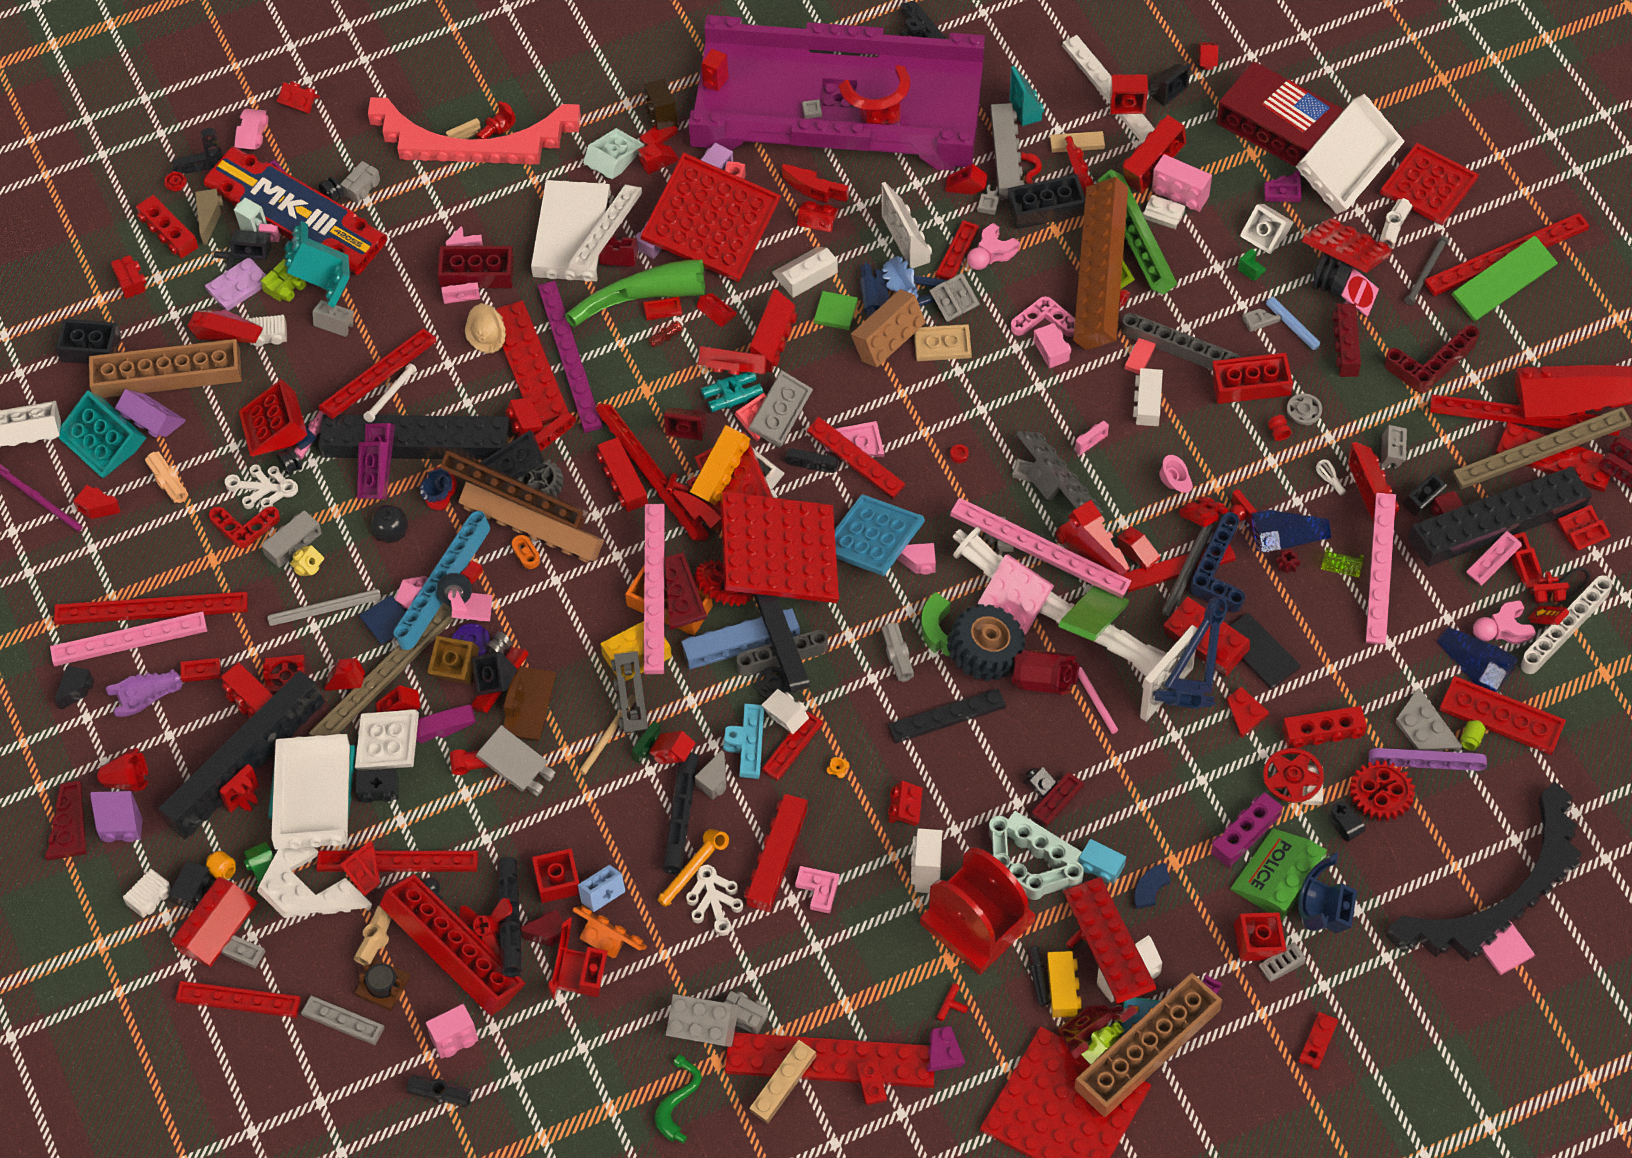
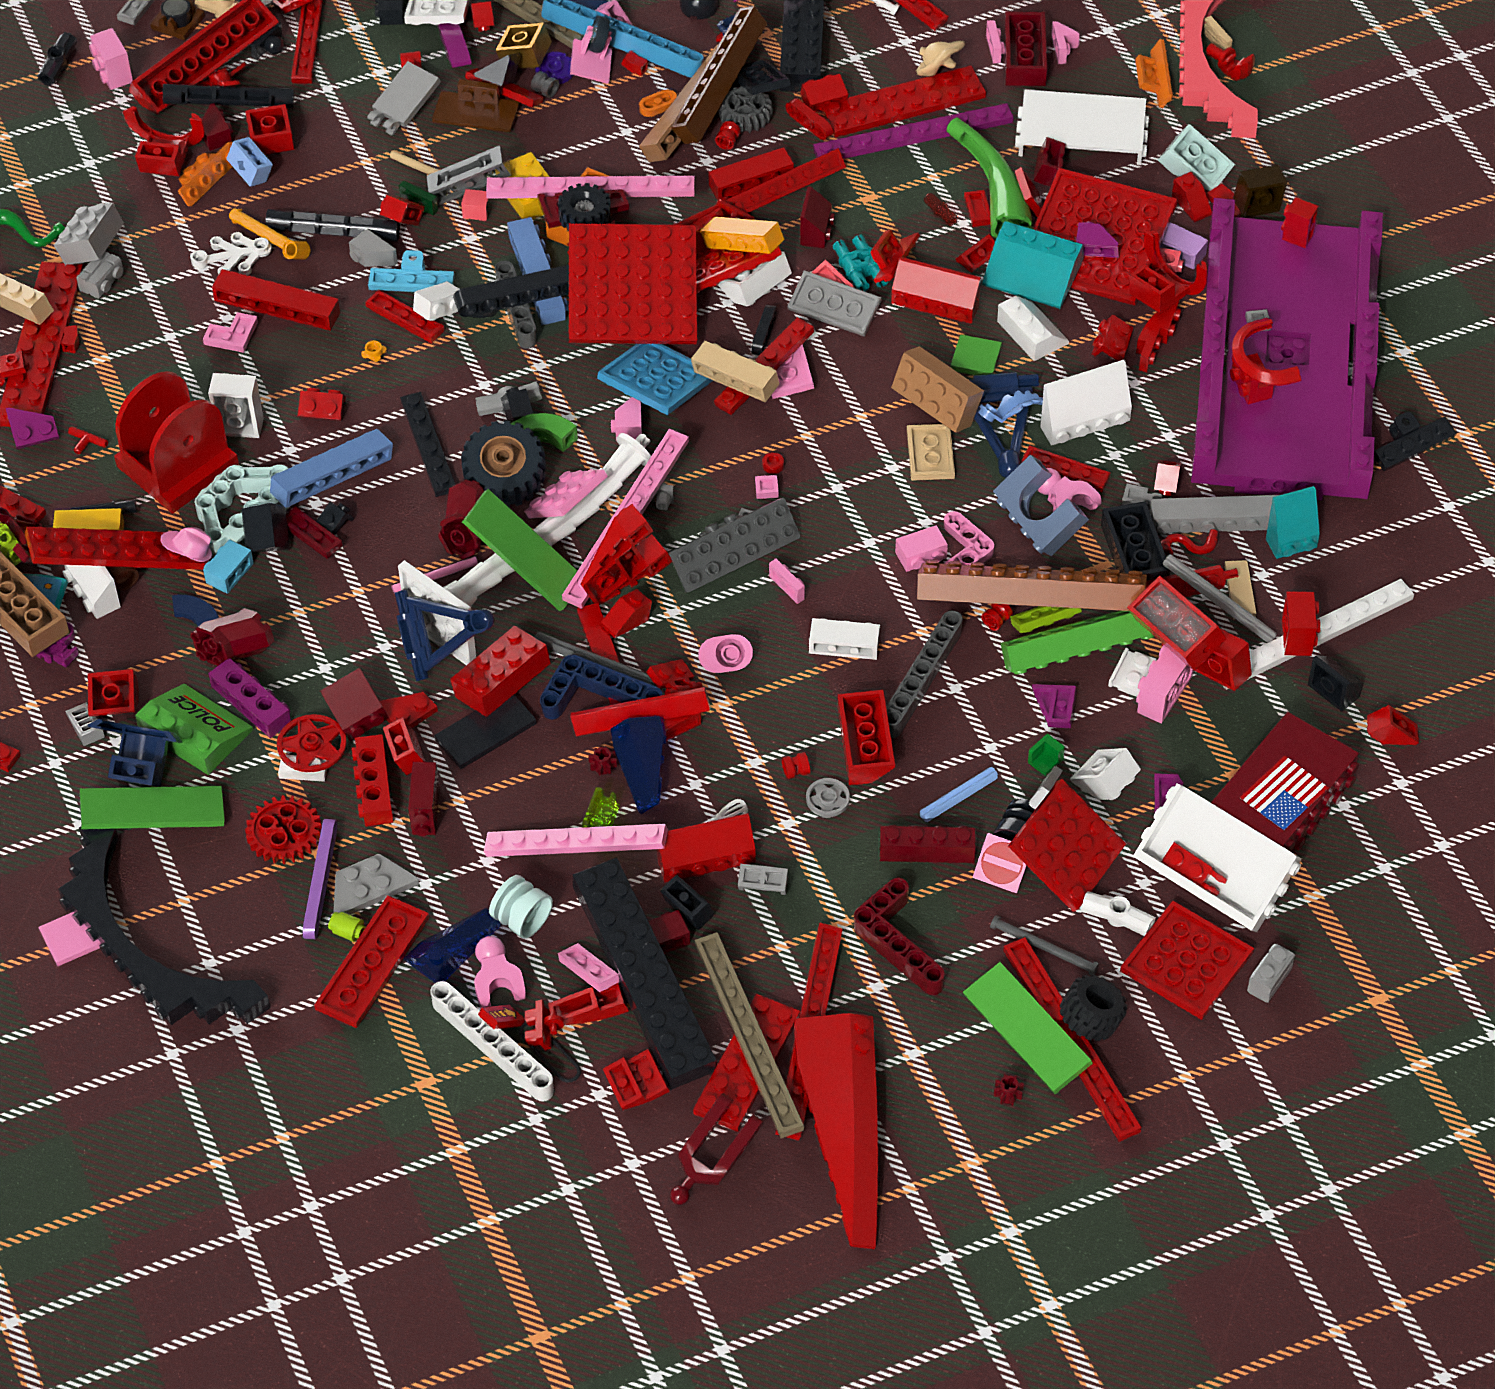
camera: 90 degrees right, 5 degrees down
(507, 176) = (1154, 73): none -> orange bracket
(572, 494) = (728, 134): none -> red wheel
(605, 228) = (1072, 142): white plate -> none
(653, 262) = (1029, 191): none -> red tile
(656, 692) = (475, 205): none -> coral panel
(692, 572) = (582, 198): none -> black bush
(724, 213) = (1096, 241): none -> magenta slope
(744, 262) = (1033, 264): none -> teal slope
(775, 169) = (1162, 286): none -> red piece
(826, 1030) = (70, 339): none -> red piece
(876, 470) = (735, 371): none -> tan brick
(915, 637) = (516, 404): none -> black brick
(954, 297) = (989, 457): light grey slope -> none
(989, 455) = (766, 486): none -> bright pink plate
(993, 780) = (331, 468): none -> medium blue brick
(1035, 258) = (1016, 494): none -> sand blue arch
(1066, 828) = (265, 528): none -> black slope
(1089, 888) = (188, 542): none -> bright pink piece
(1103, 143) = (1219, 598): none -> light grey axle
(1140, 355) = (906, 636): coral tile -> none
(1153, 156) = (1176, 623): none -> brick
(1192, 844) = (232, 637): none -> dark red brick
(1202, 258) = (1056, 703): none -> magenta wing
(1245, 529) = (666, 706): none -> red tile
(1250, 744) = (354, 704): none -> dark red brick
(1259, 319) = (965, 759): light grey tile -> none
(1292, 702) = (403, 744): none -> red brick
(1302, 253) = (1045, 787): none -> light grey tile
(1346, 821) = (247, 792): black piece -> none
(1348, 681) = (424, 798): none -> dark red brick
(1354, 173) = (1192, 867): none -> red hinge
(1376, 891) = (151, 807): none -> bright green tile
(1437, 133) = (1271, 973): none -> light grey brick
(1446, 605) = (521, 906): none -> light aqua wheel
(1488, 234) = (1093, 1007): none -> black tyre
(1558, 291) = (1008, 1089): none -> dark red gear

